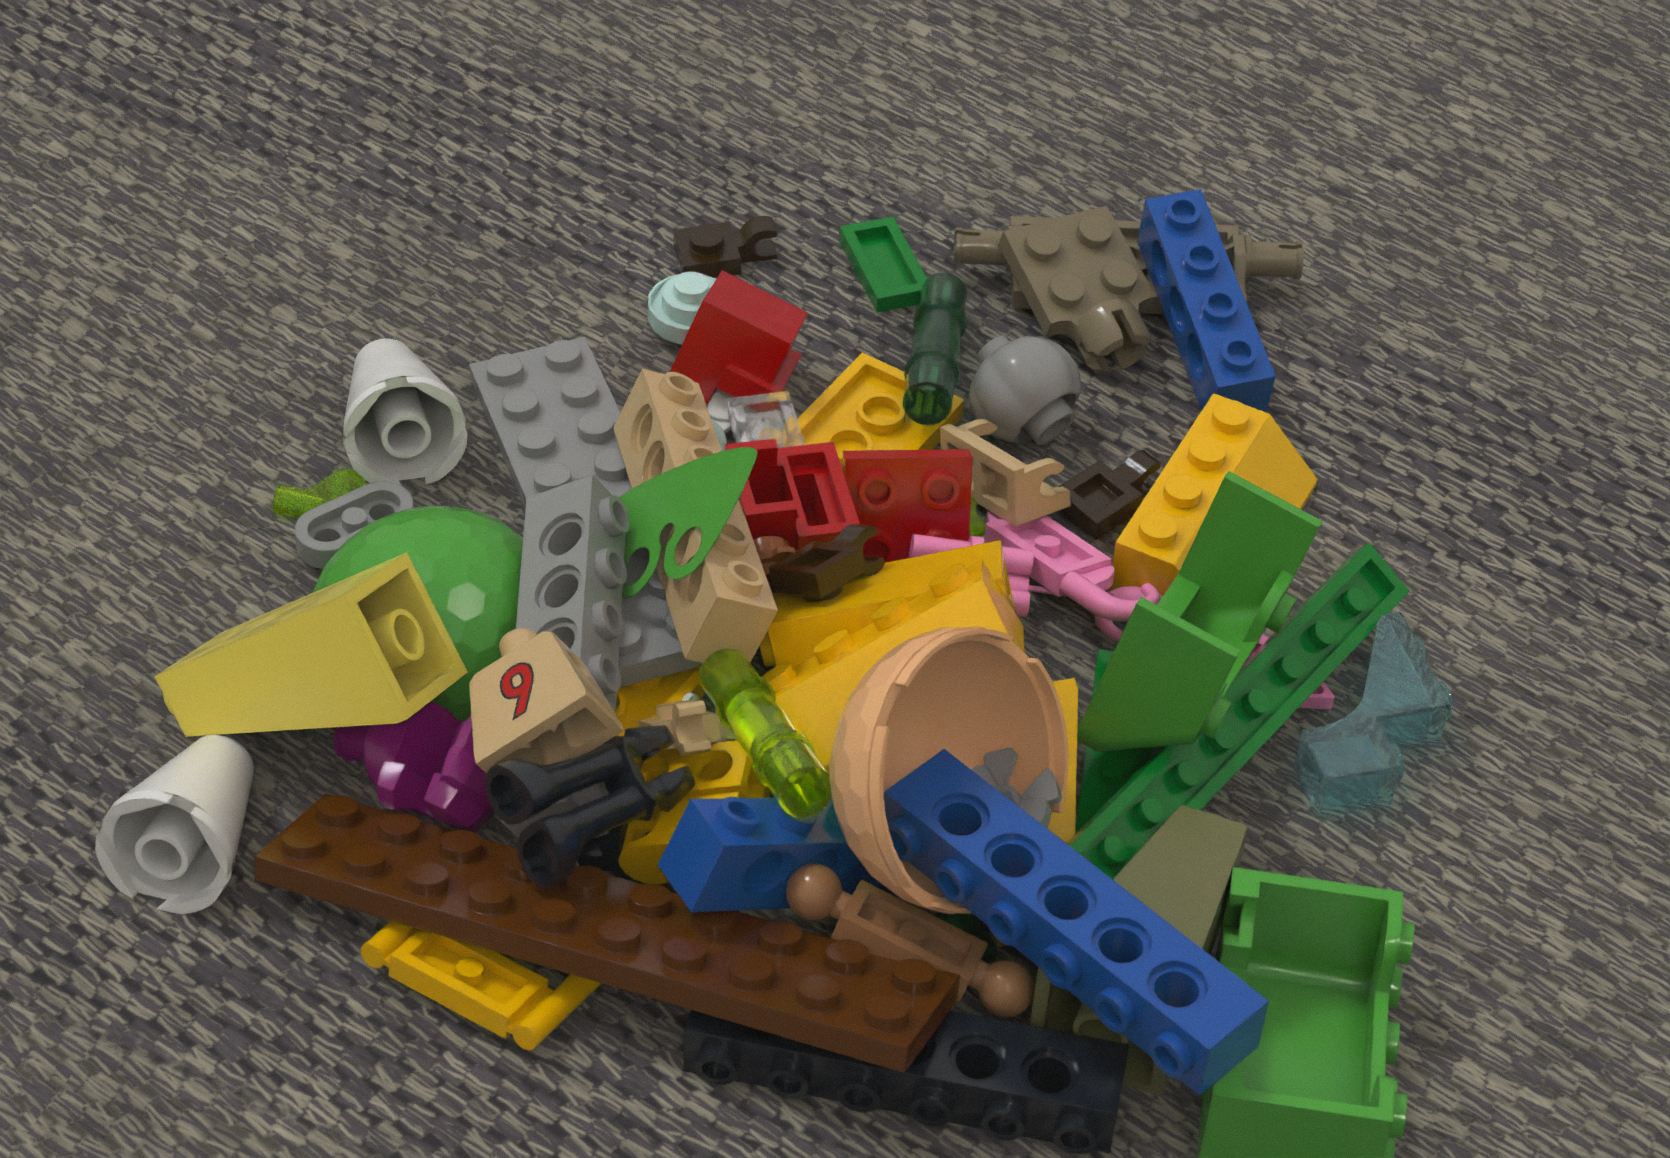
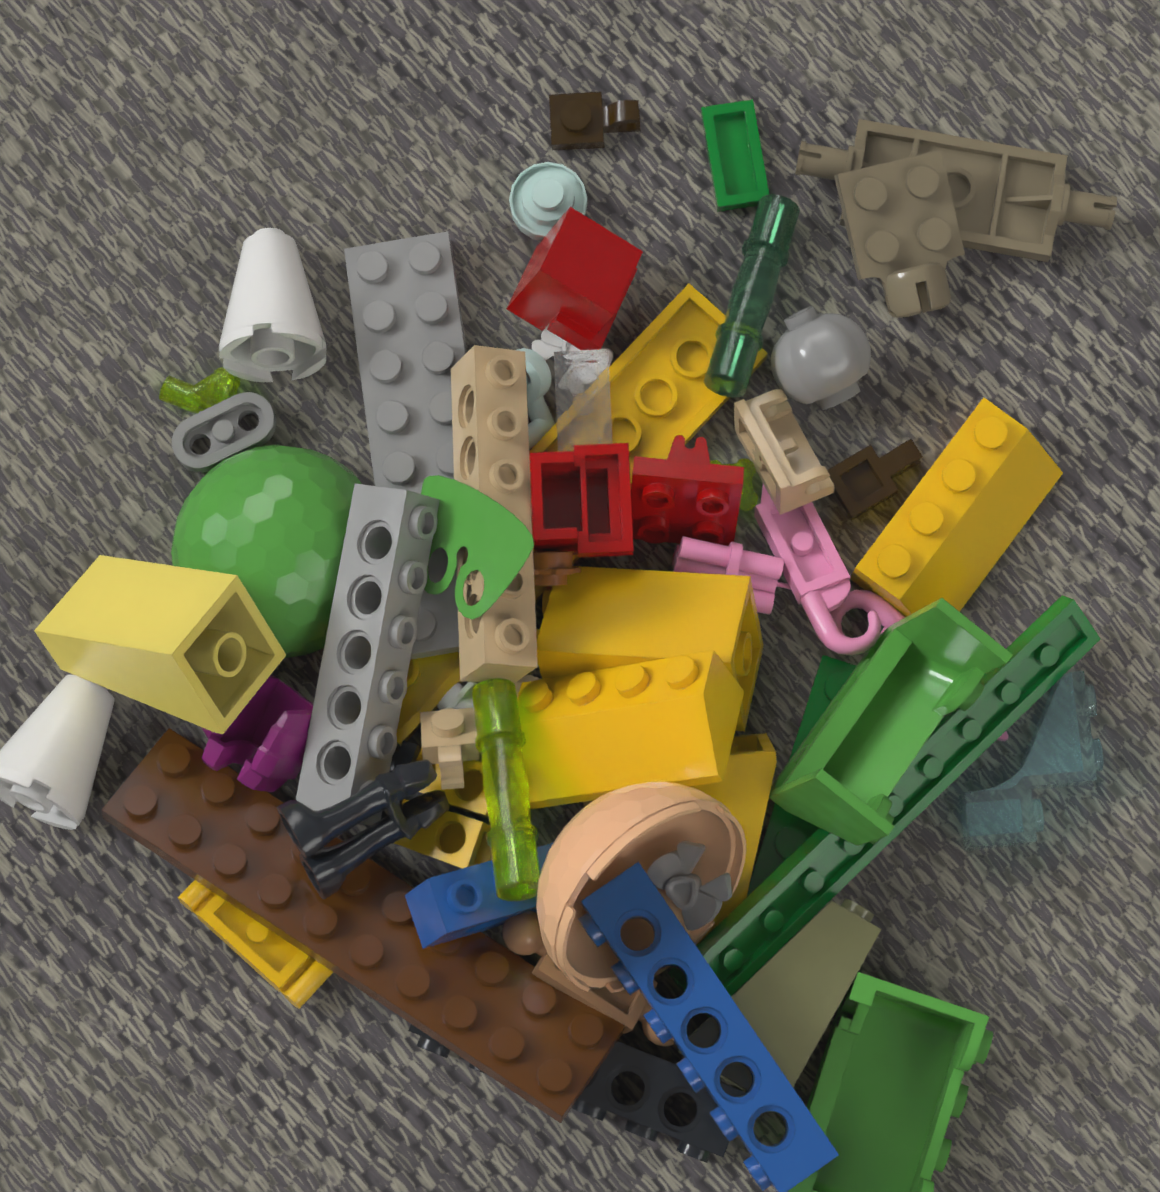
camera: 15 degrees right, 35 degrees up
(537, 704) = (327, 737): tan torso -> none
(822, 568) = (595, 595): dark brown plate -> none
(1203, 301) = (1004, 278): blue brick -> none

